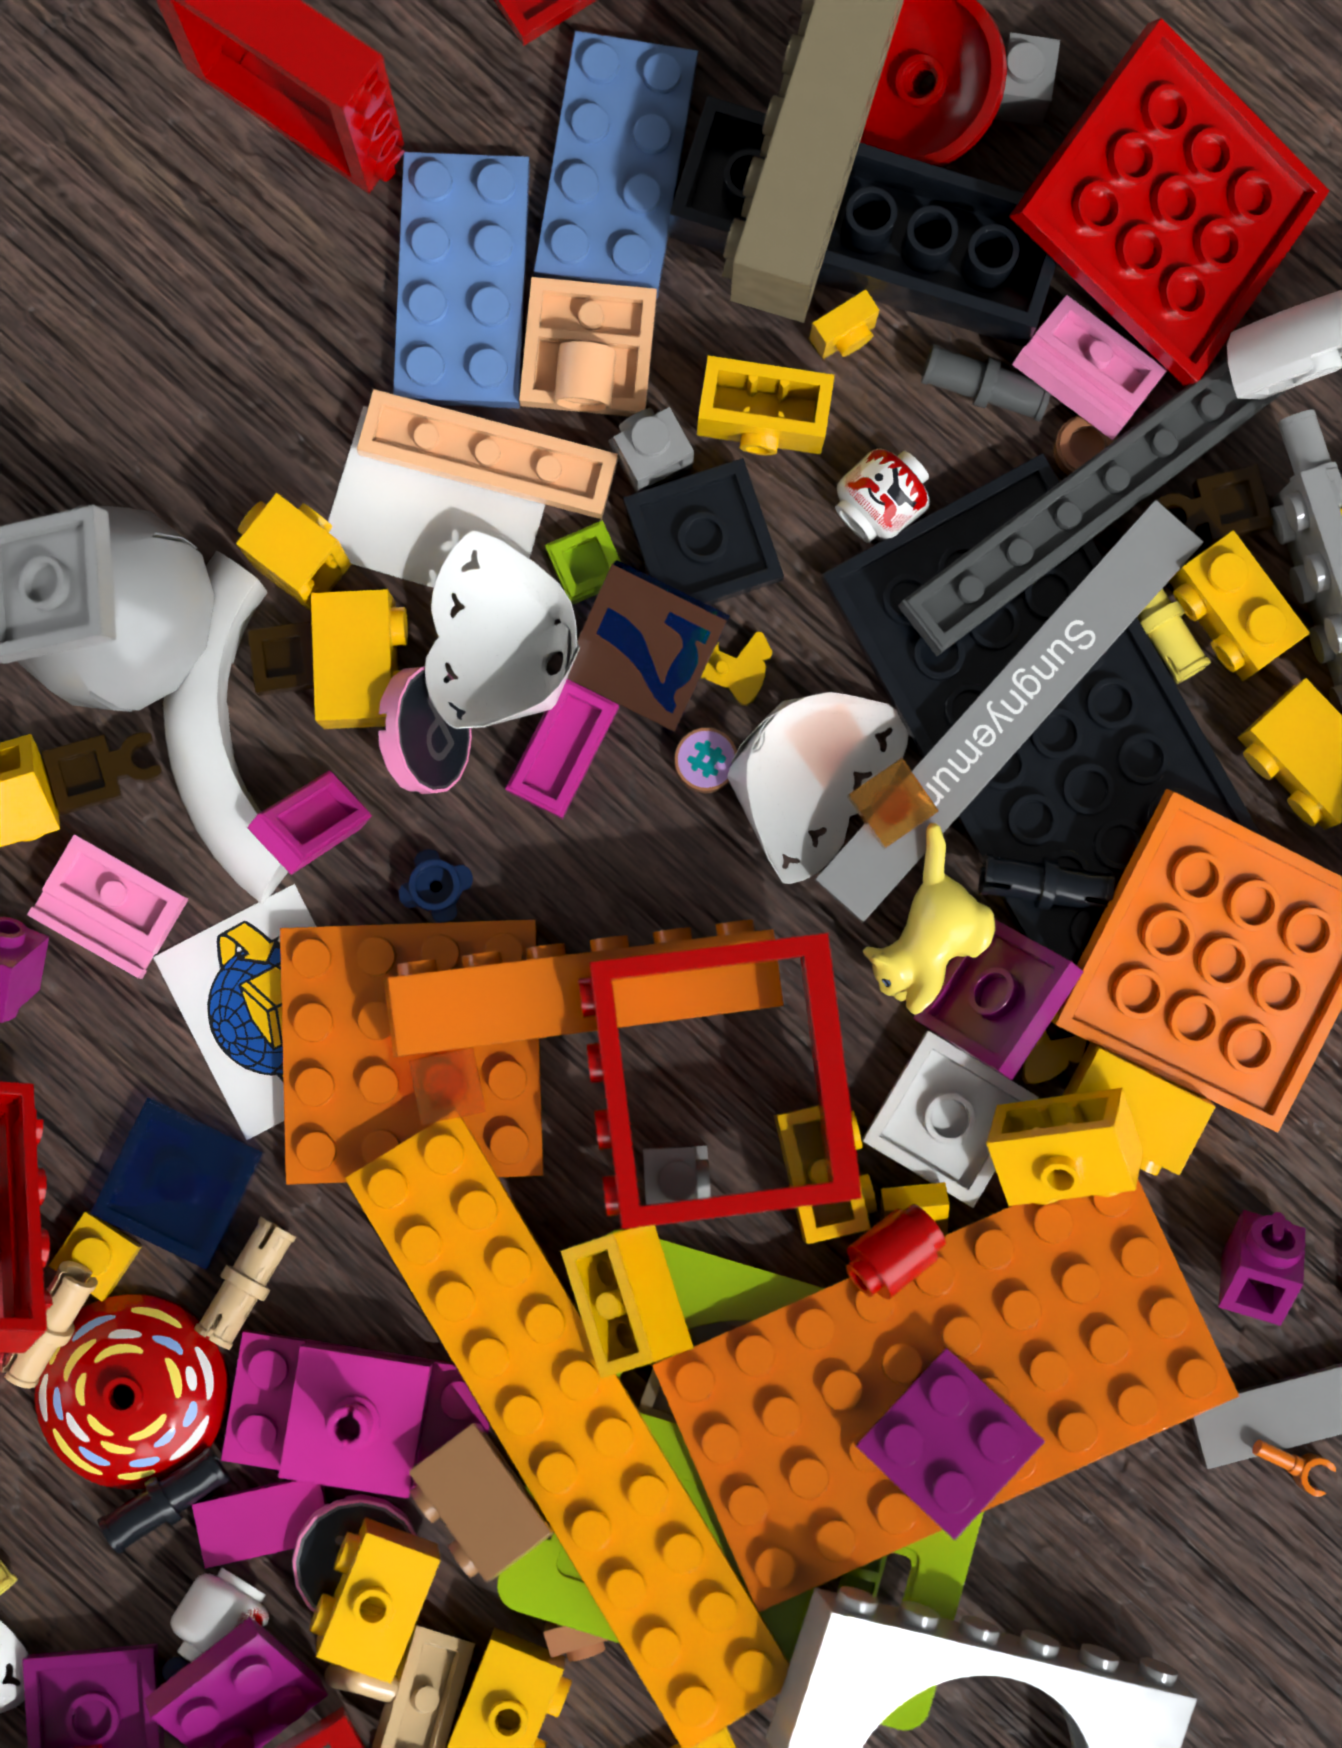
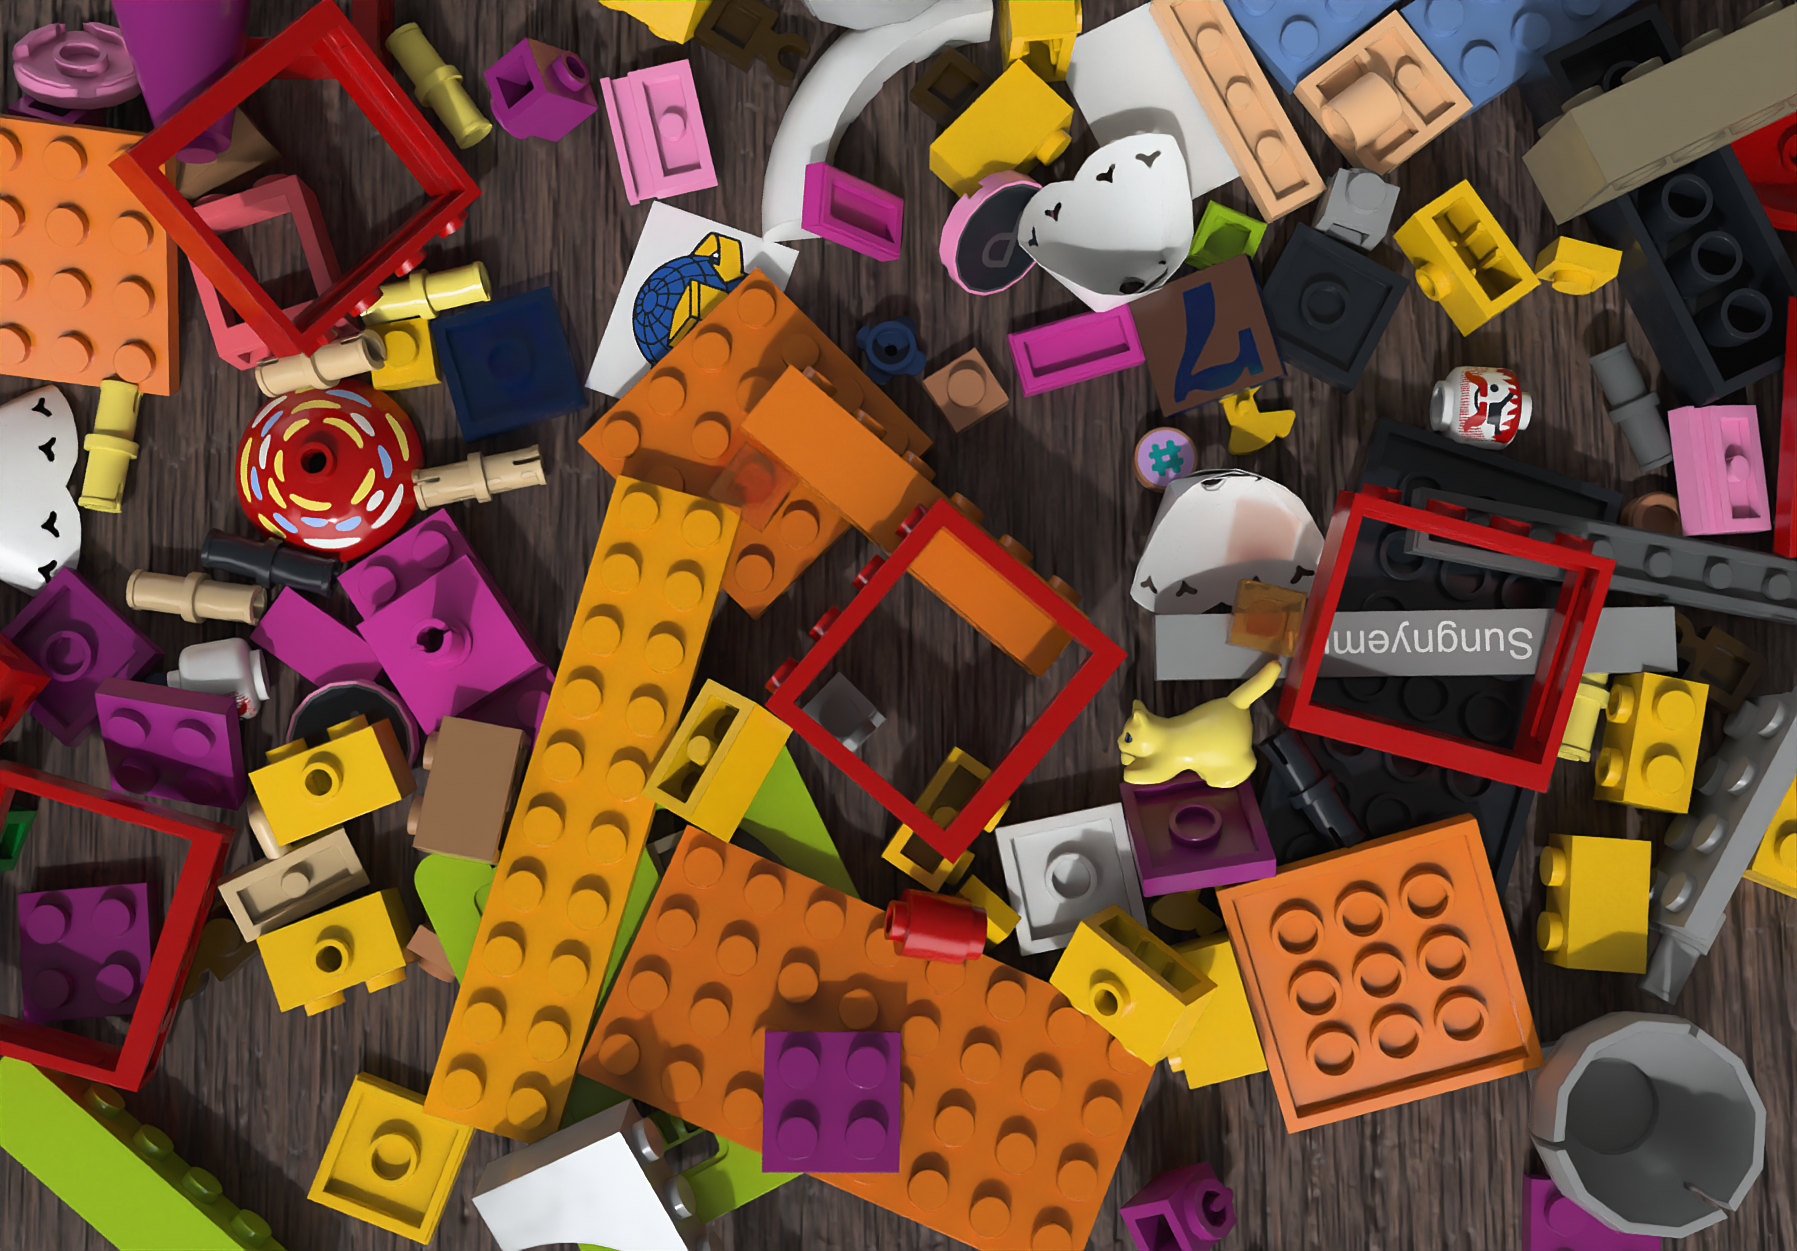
camera: 50 degrees right, 0 degrees up
(70, 1191) = (429, 293): none -> light yellow pin
(137, 1580) = (196, 597): none -> tan pin
(518, 860) = (965, 392): none -> nougat plate
(1166, 723) = (1557, 673): none -> red window

